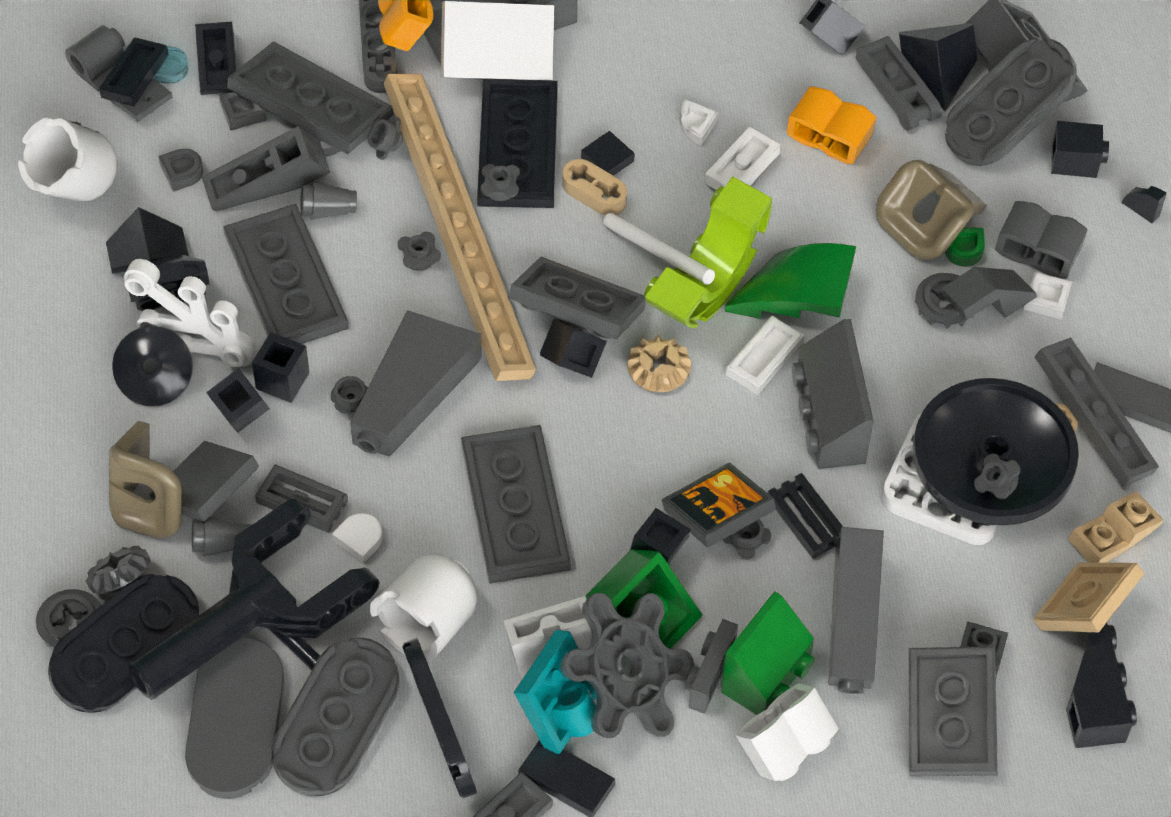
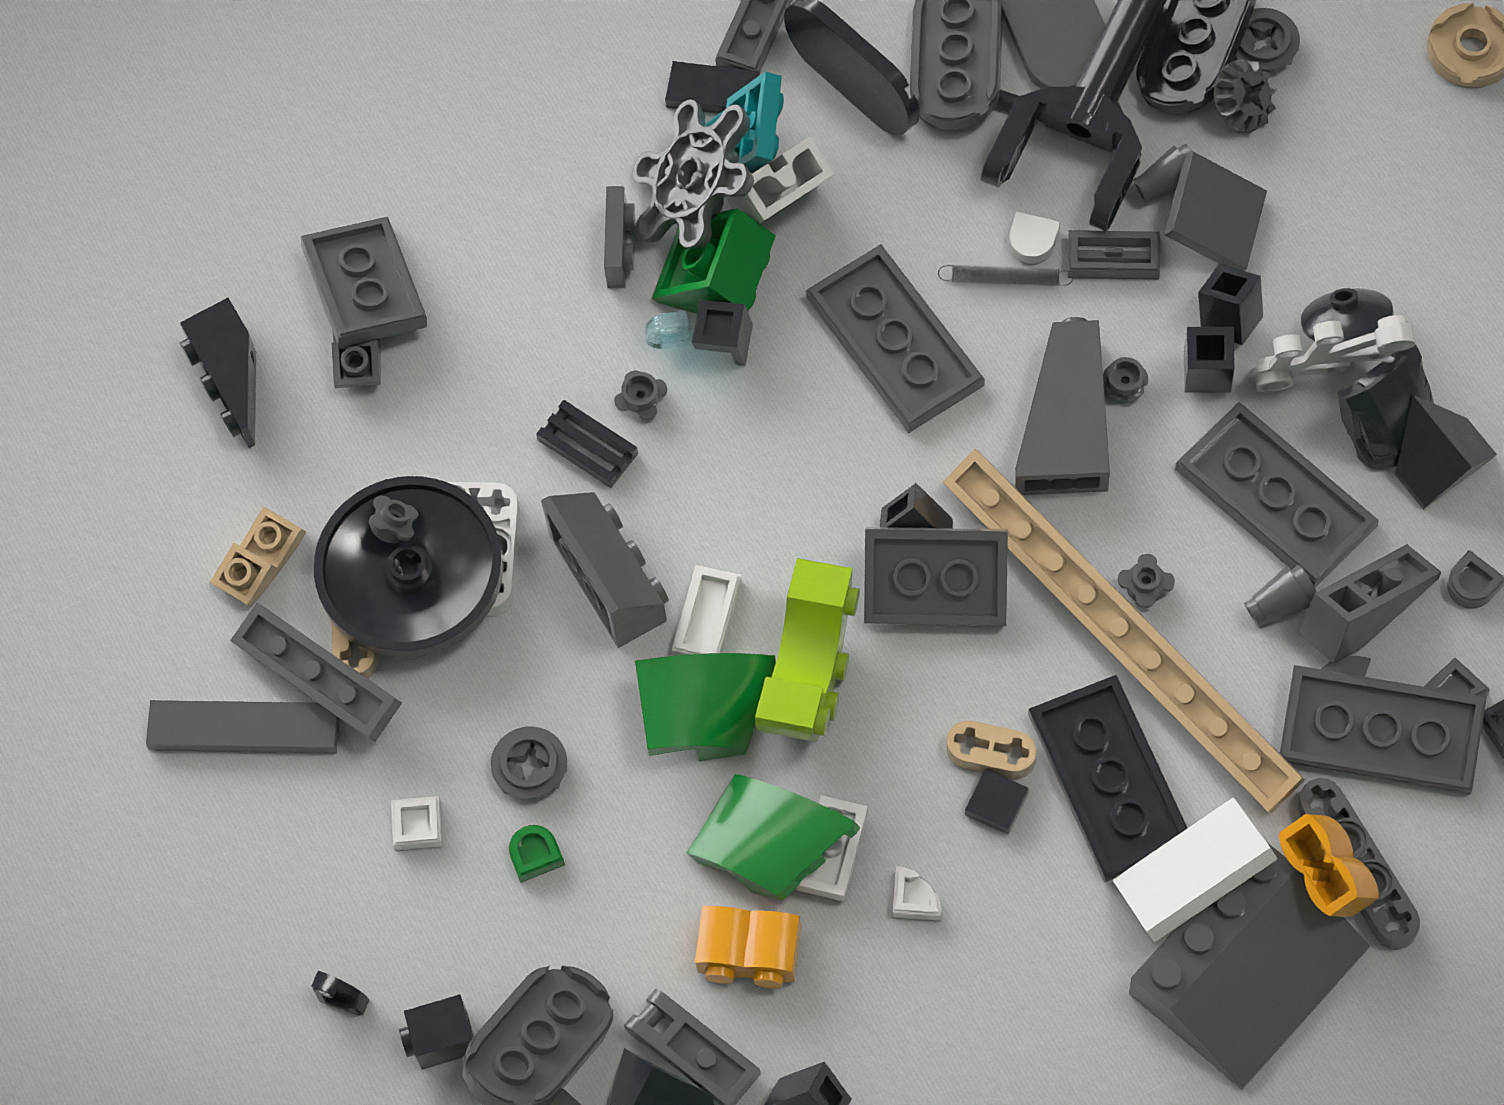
camera: 165 degrees right, 10 degrees up
(132, 465) = (1269, 153): dark tan piece -> none
(385, 136) = (1262, 708): dark grey plate -> none
(399, 514) = (1018, 275): none -> dark grey piece
(426, 603) = (920, 168): white cylinder -> none
(503, 189) = (1091, 702): dark grey plate -> none
(659, 248) = (874, 668): white bar -> none
(666, 376) = (805, 535): tan gear -> none
(701, 570) = (669, 330): none -> clear light blue tile
(719, 504) = (680, 402): tile -> none
(767, 656) = (562, 253): green slope -> none
(787, 732) = (516, 191): white brick -> none
(792, 175) = (768, 836): none -> green slope
(855, 609) = (497, 347): dark grey slope -> none
(910, 186) = (574, 898): dark tan piece -> none
(988, 286) = (480, 775): dark grey slope -> none
(1041, 239) = (444, 883): dark grey brick -> none
(1088, 597) = (261, 443): tan tile -> none

